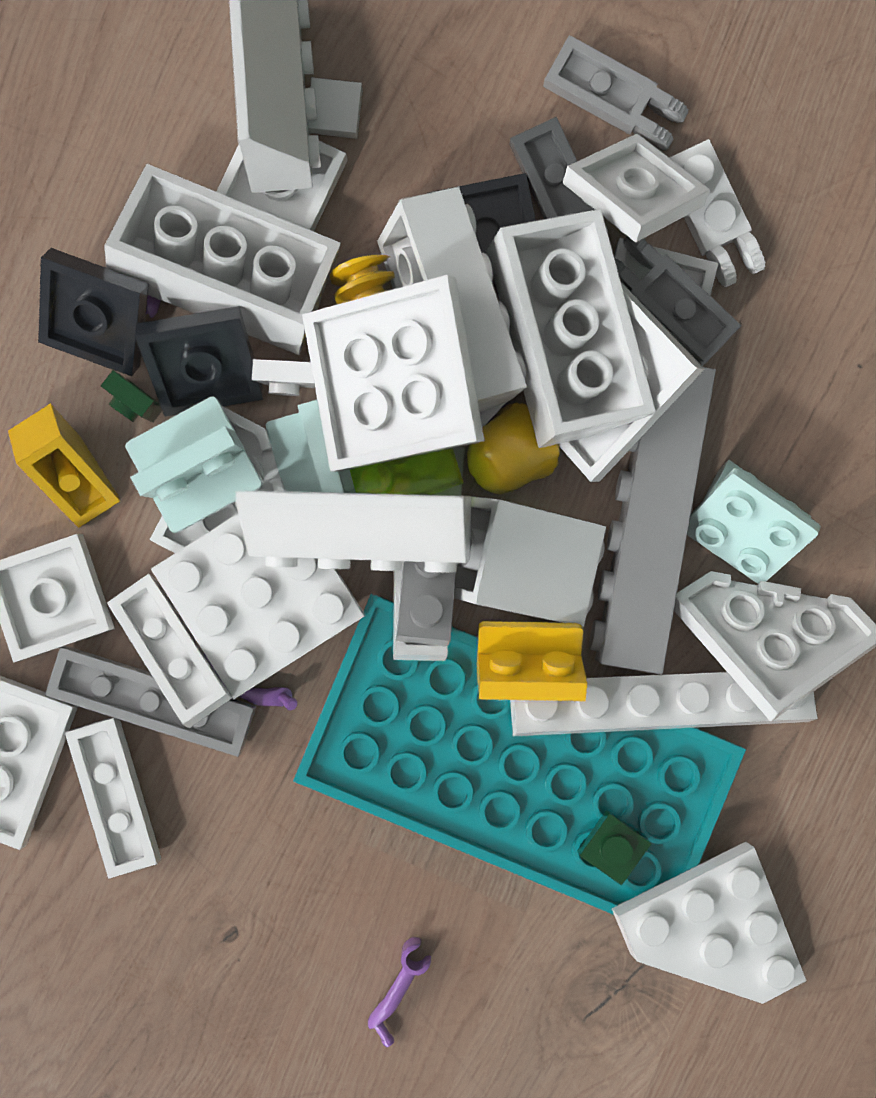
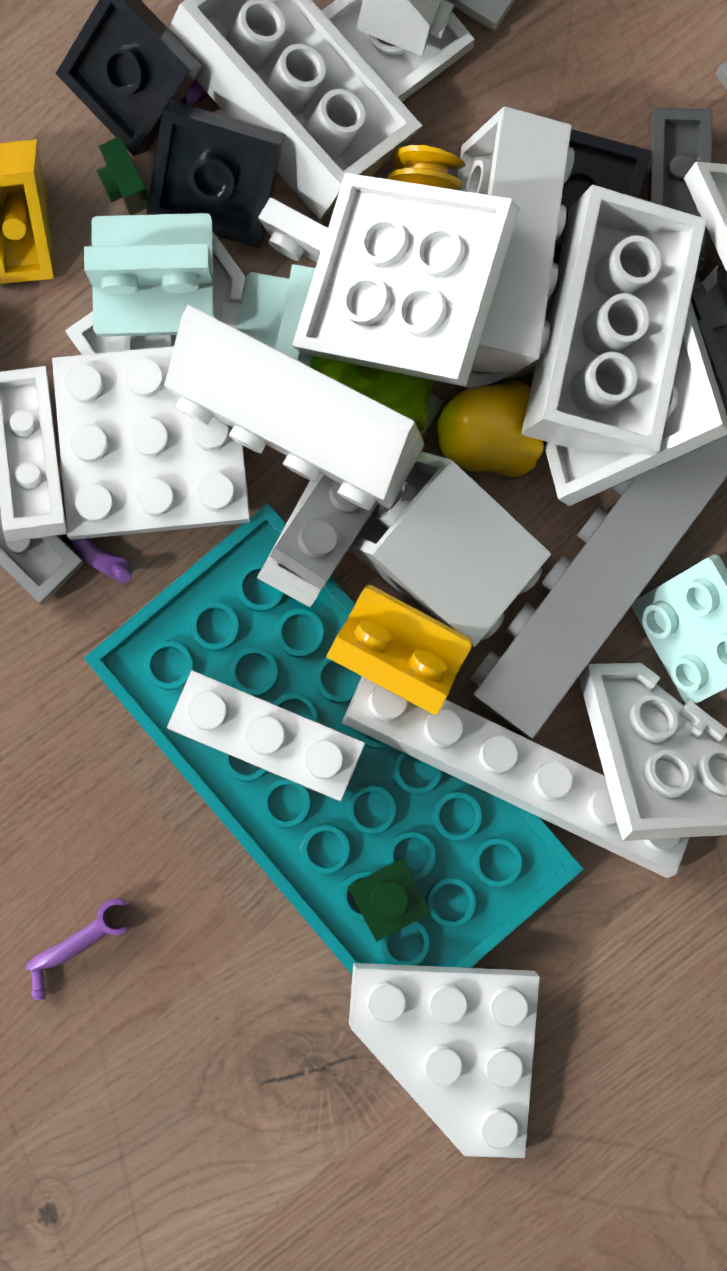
camera: 25 degrees right, 5 degrees down
(463, 777) = (266, 736): none -> white brick

